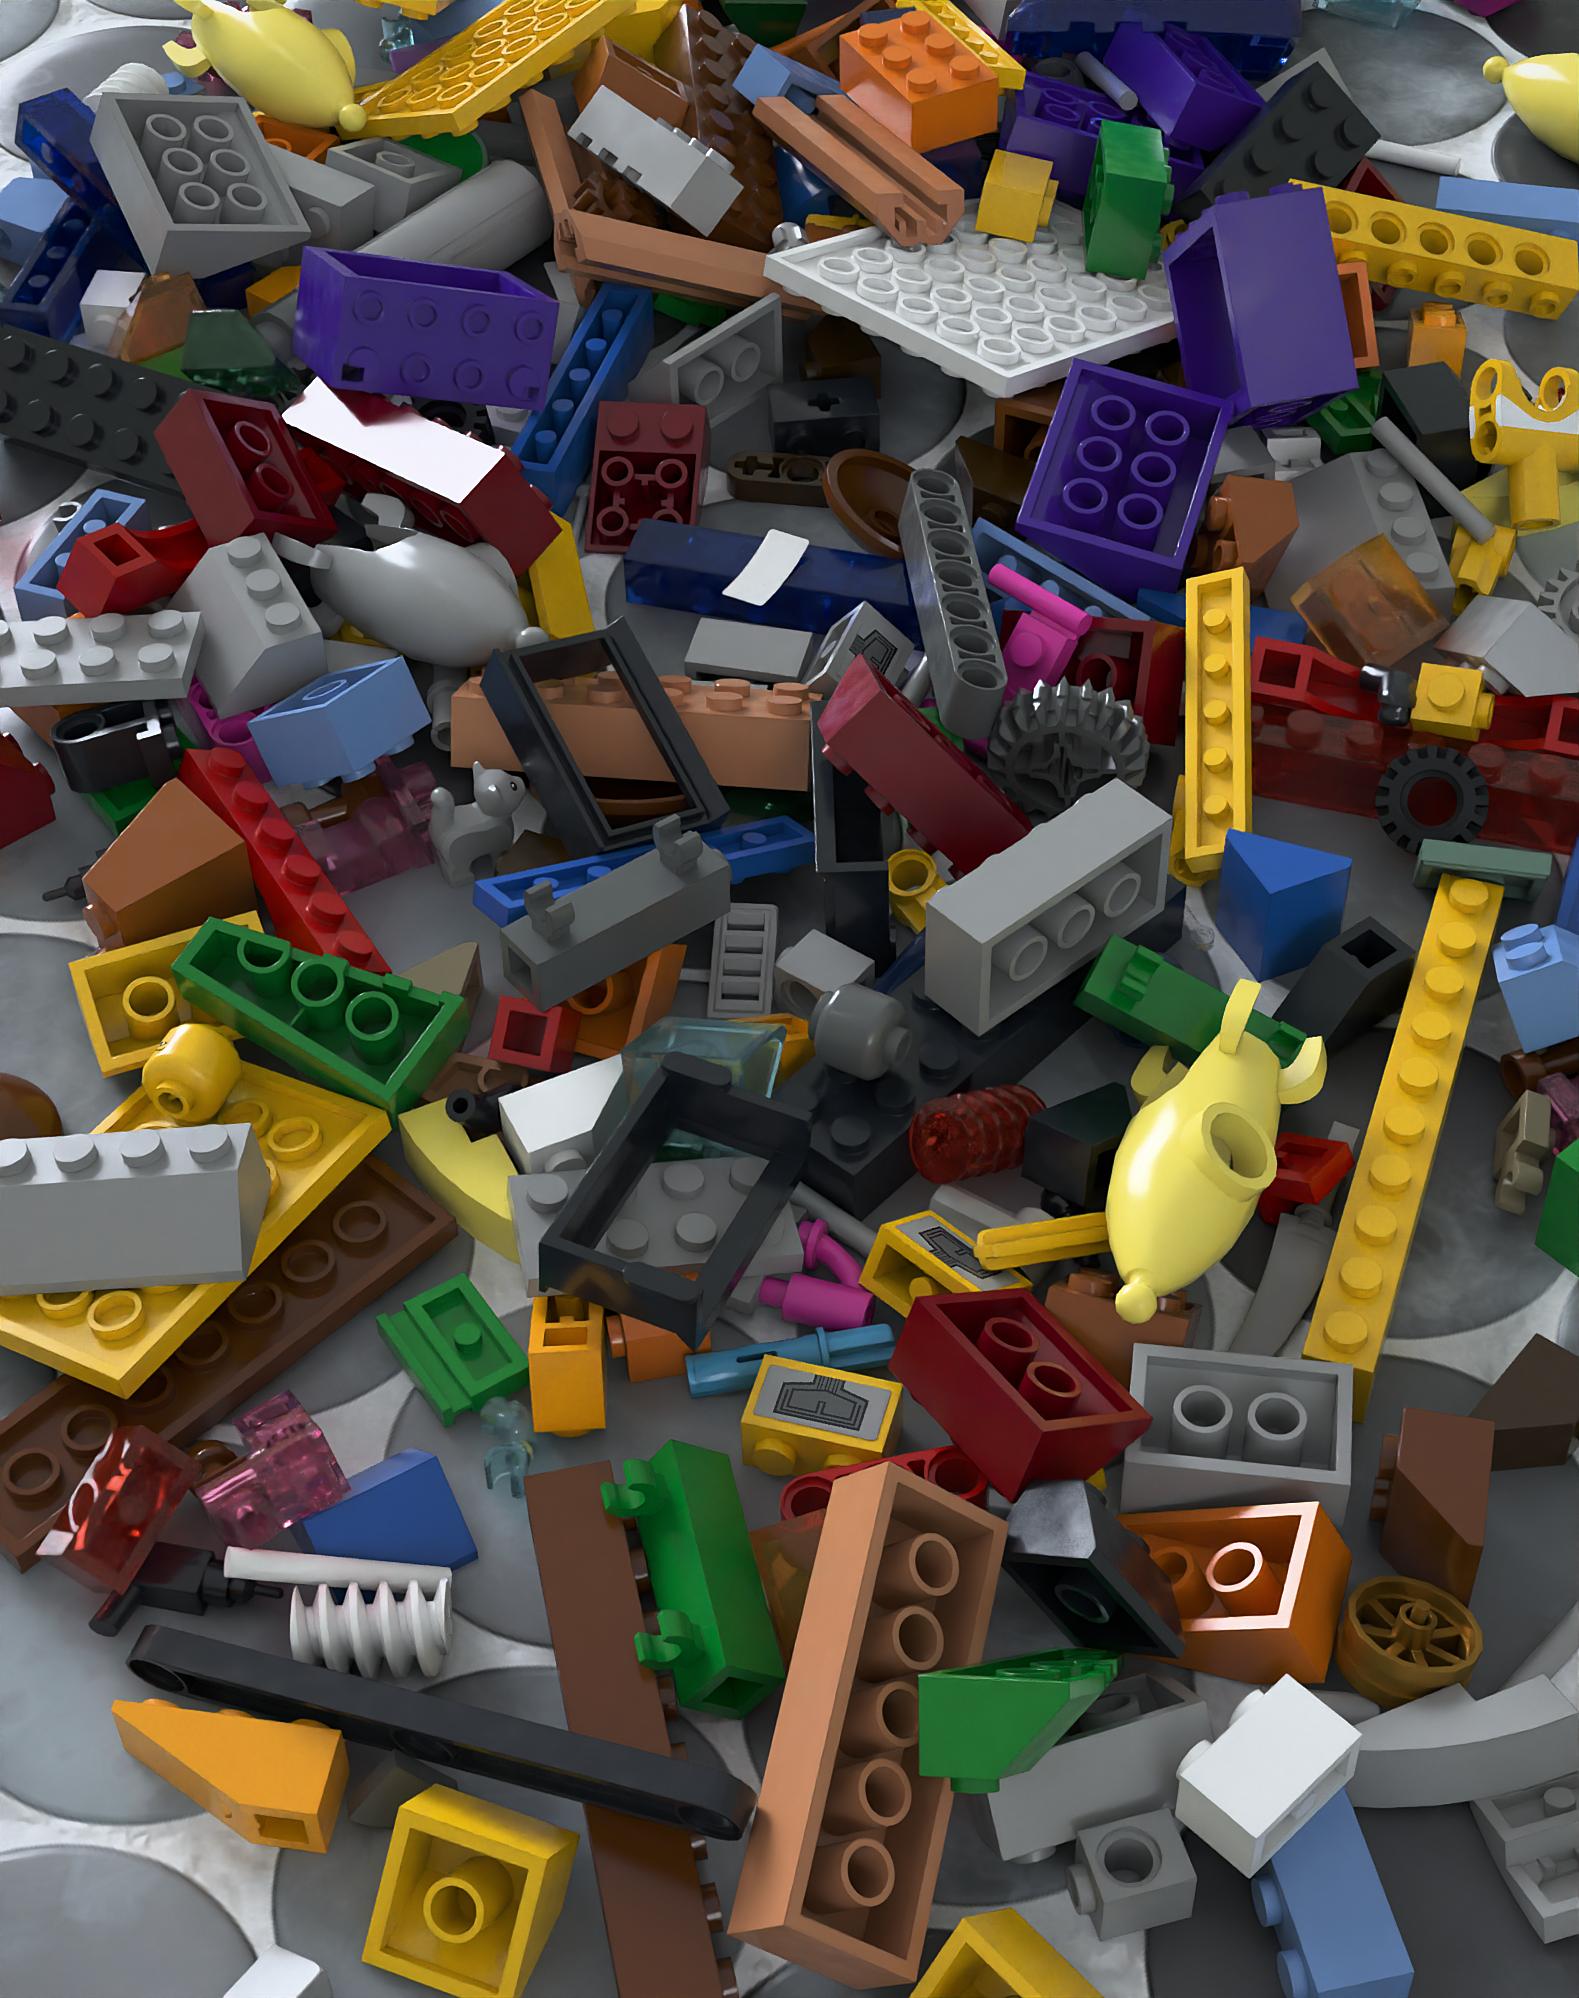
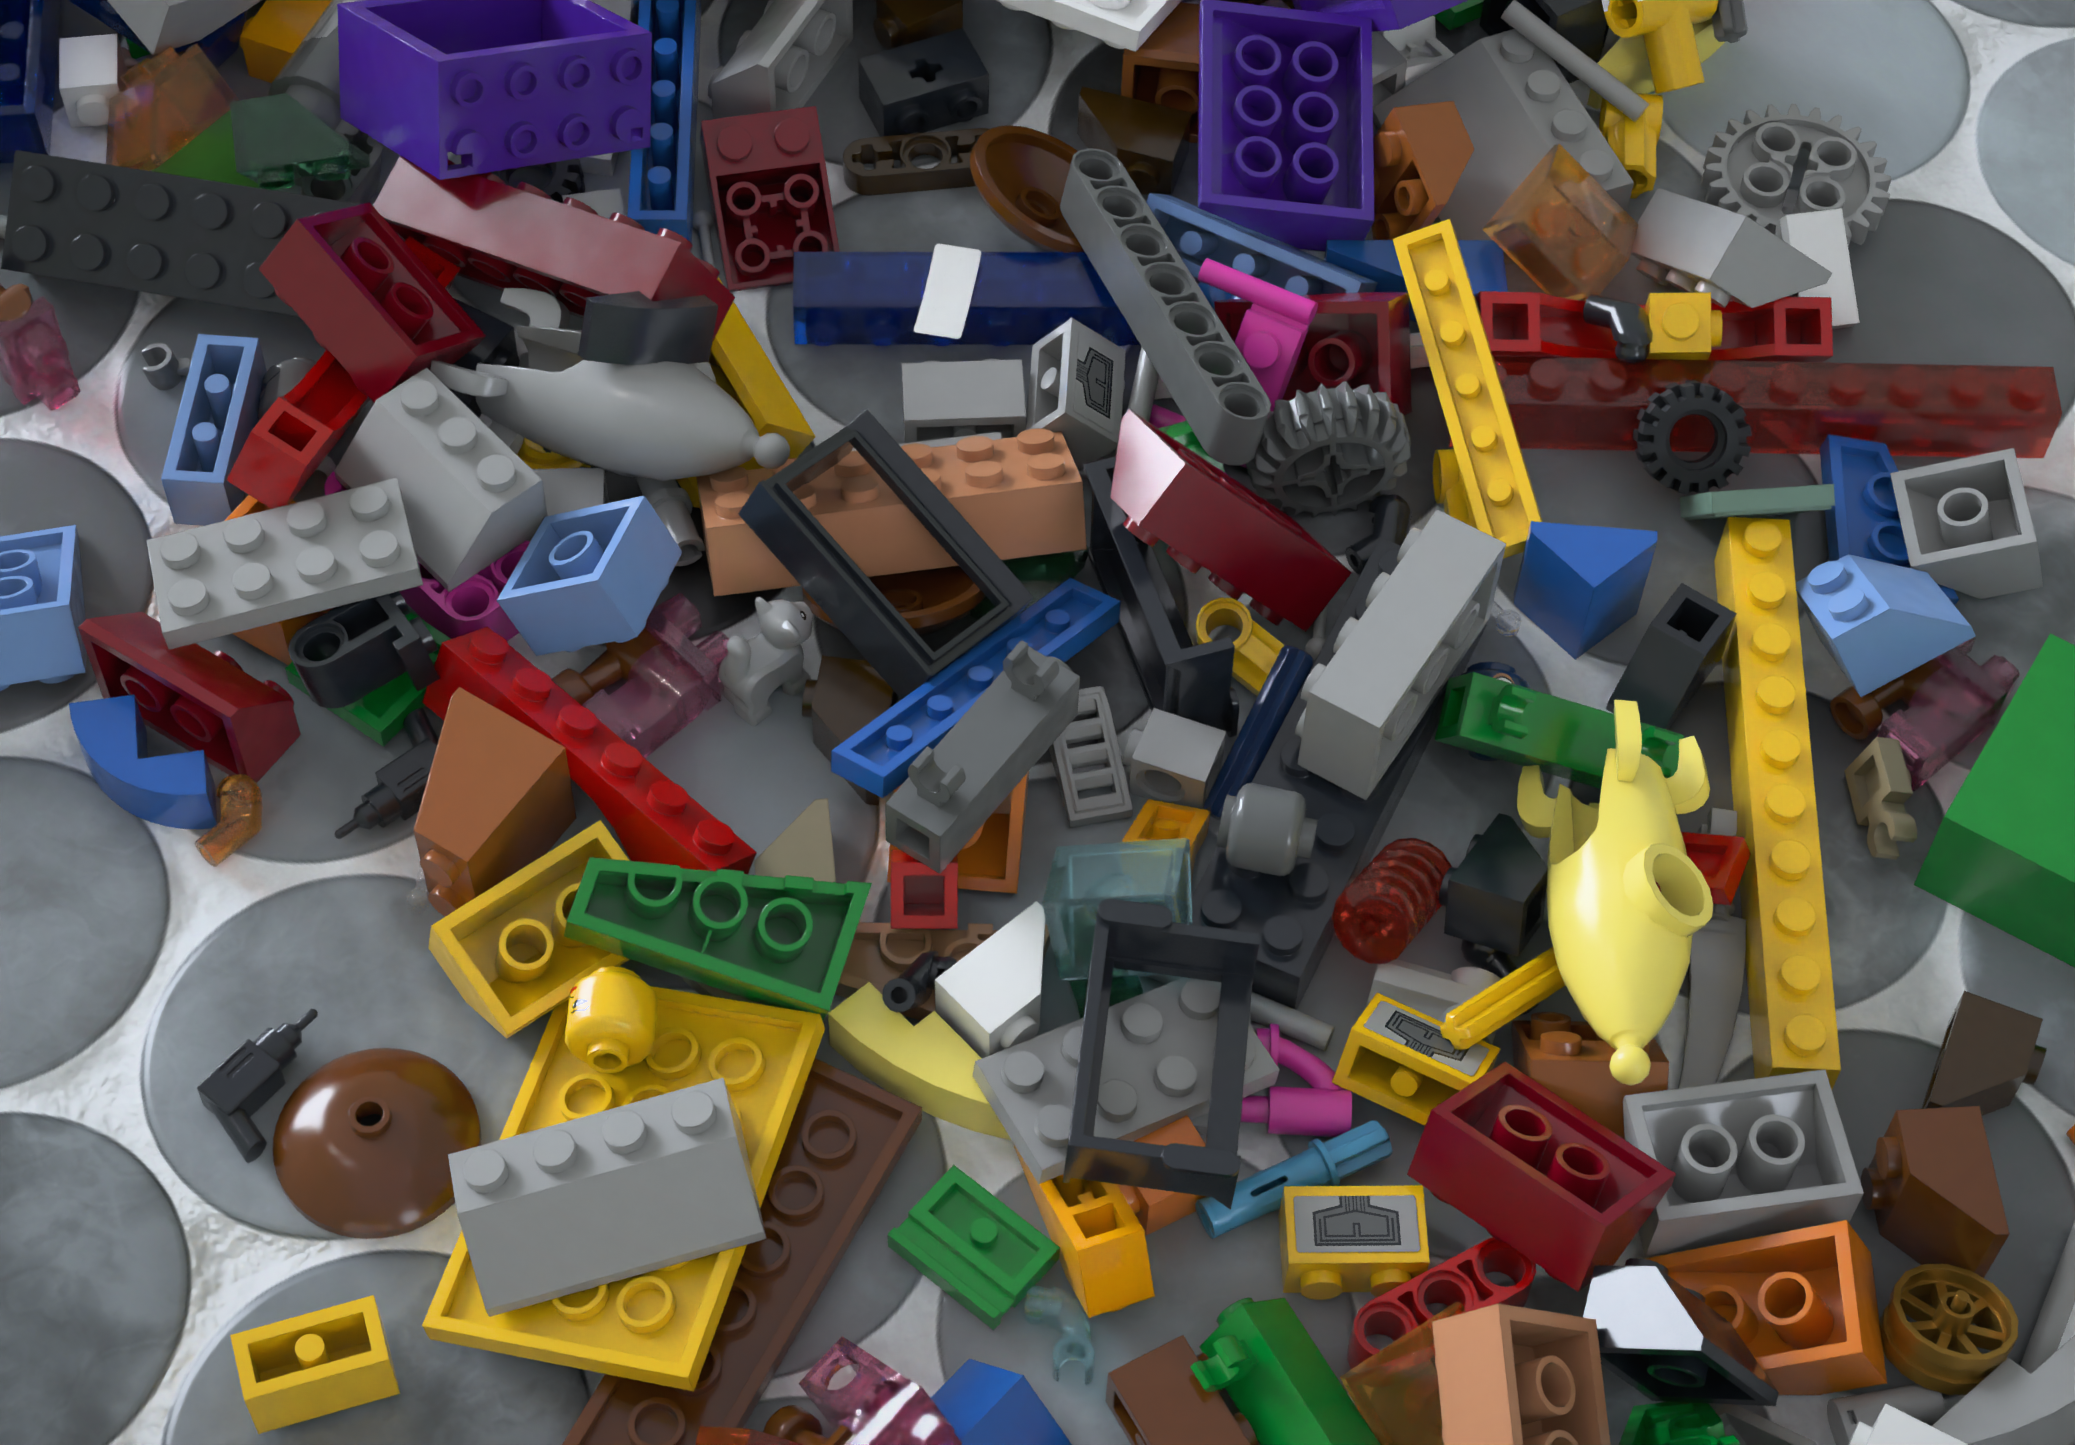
camera: 20 degrees left, 10 degrees up
(452, 523) = (643, 331): none -> black slope

